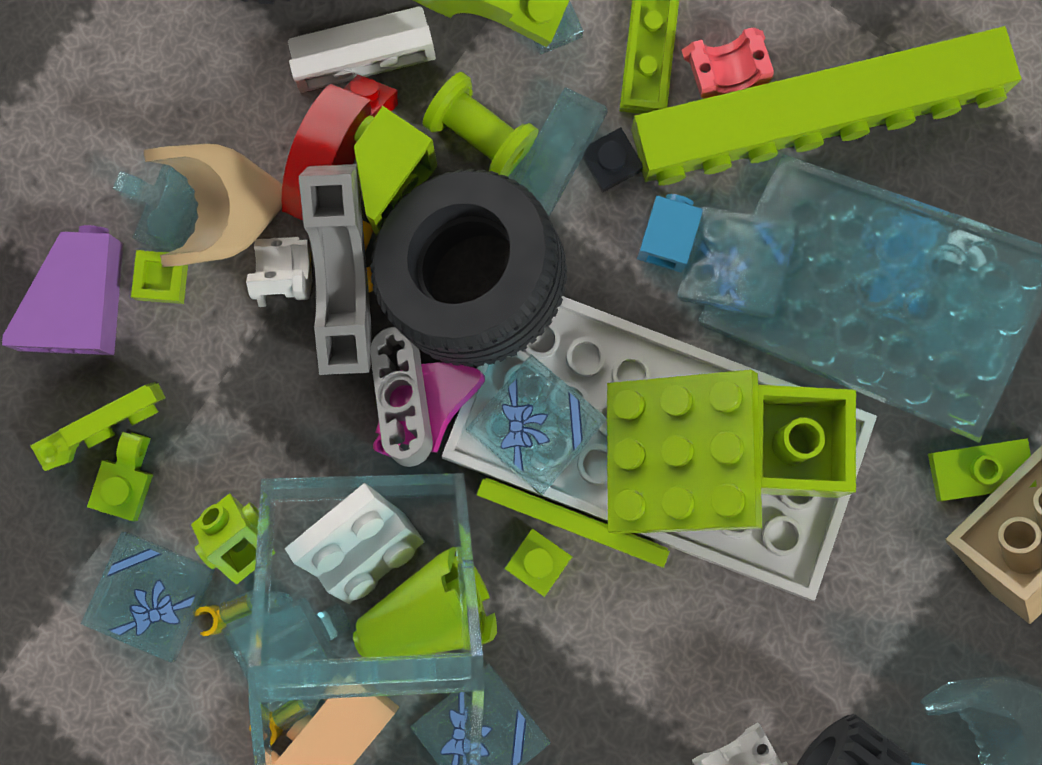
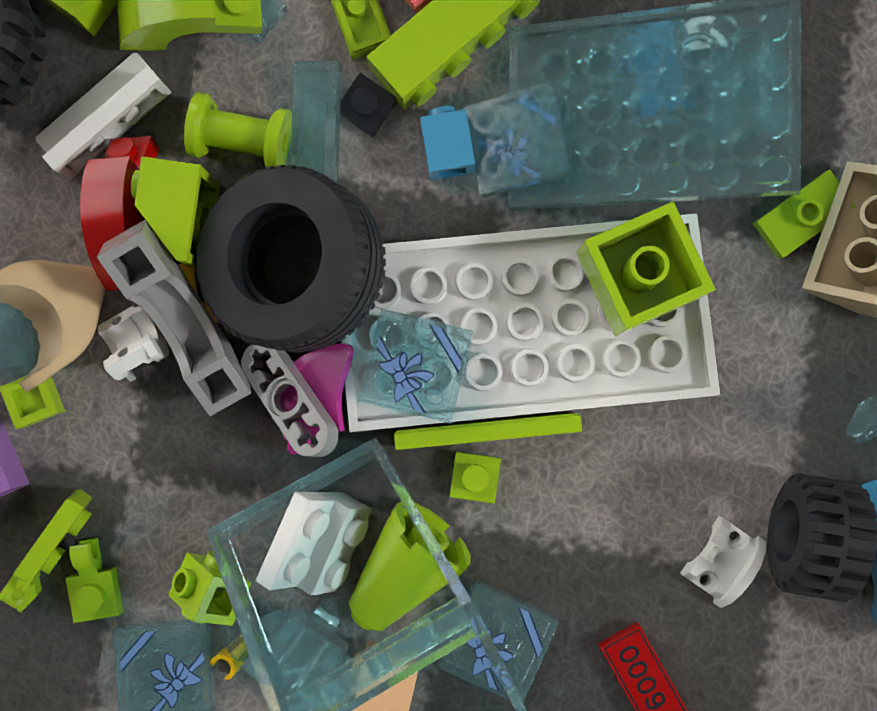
camera: 30 degrees left, 5 degrees up
(684, 453) = (554, 328): lime plate -> none

